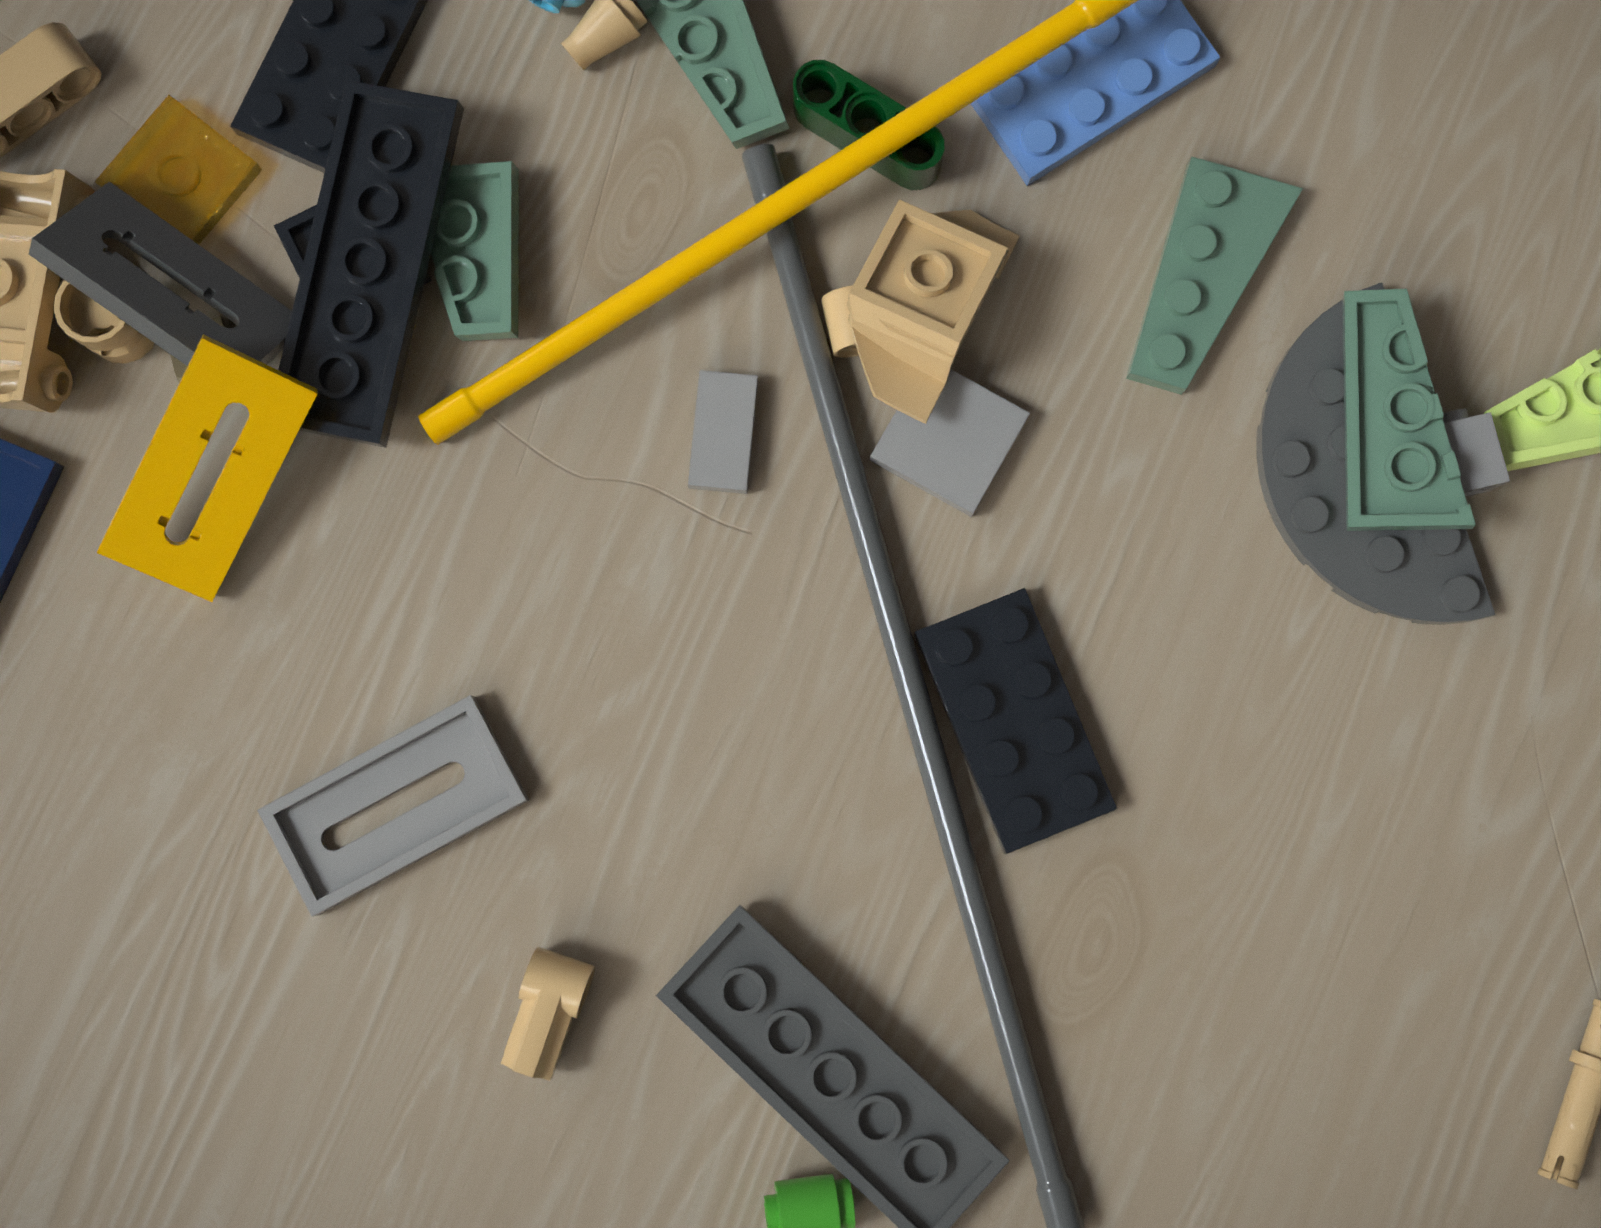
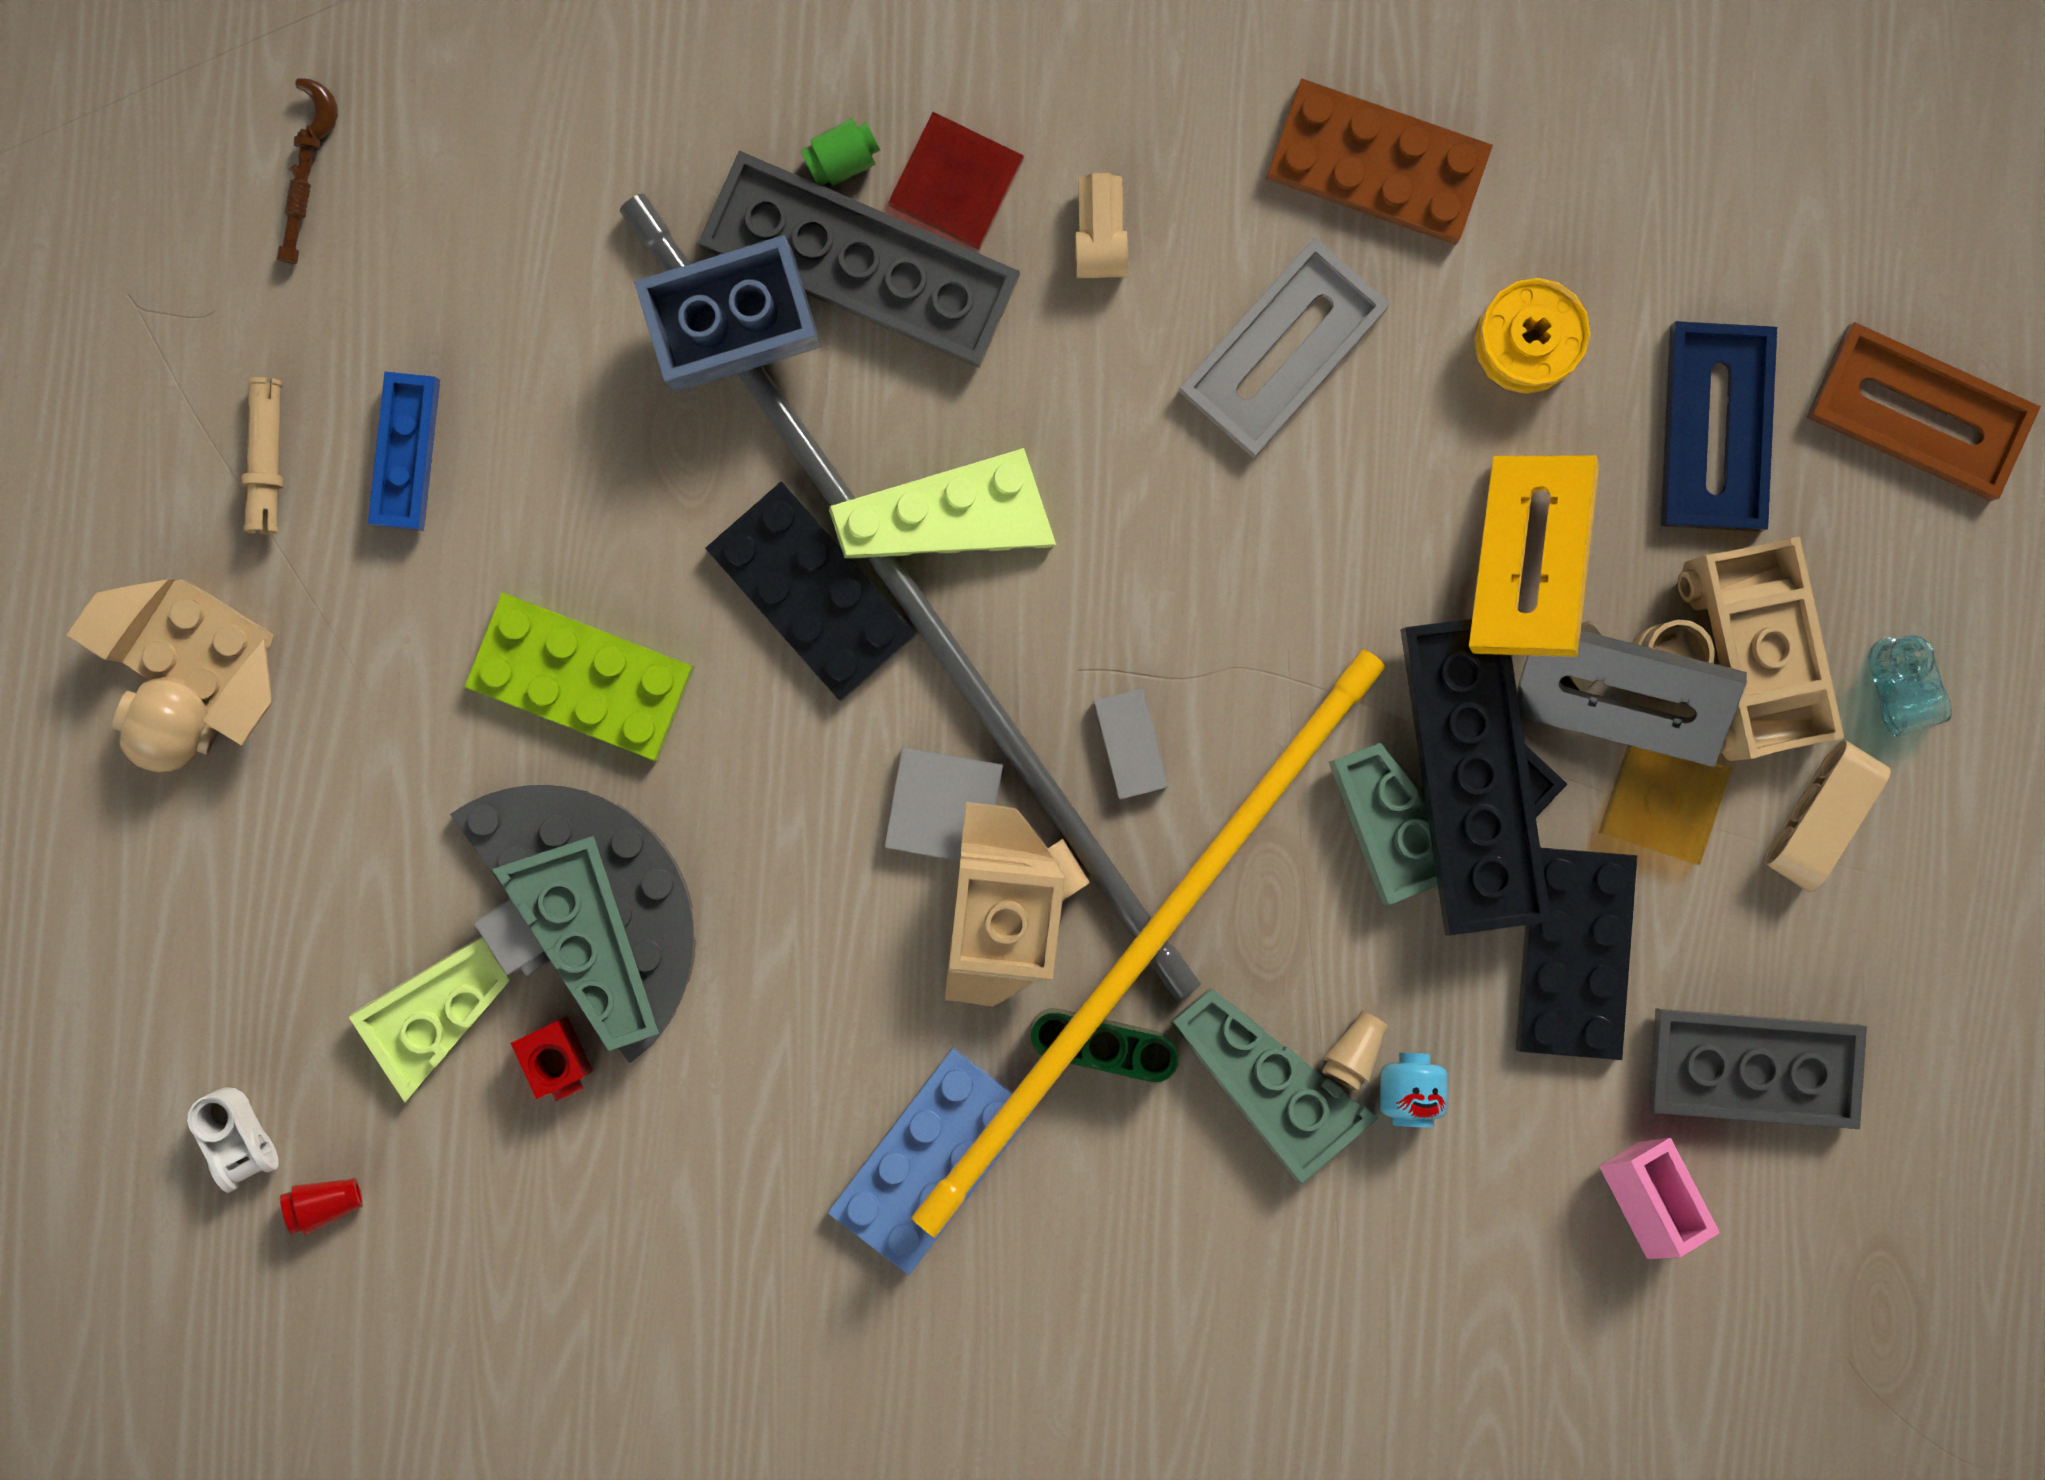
camera: 160 degrees right, 5 degrees up
(86, 698) = (1518, 310): none -> yellow wheel
(207, 978) = (1379, 161): none -> dark orange plate
(689, 1130) = (956, 180): none -> clear red tile
(824, 749) = (963, 509): none -> yellowish green wing
(1006, 1059) = (727, 314): none -> sand blue brick
(1208, 257) = (779, 1035): sand green wing -> none
(1303, 717) = (579, 676): none -> lime plate
(1422, 1040) = (404, 451): none -> blue plate
(1450, 333) = (530, 1054): none -> red brick

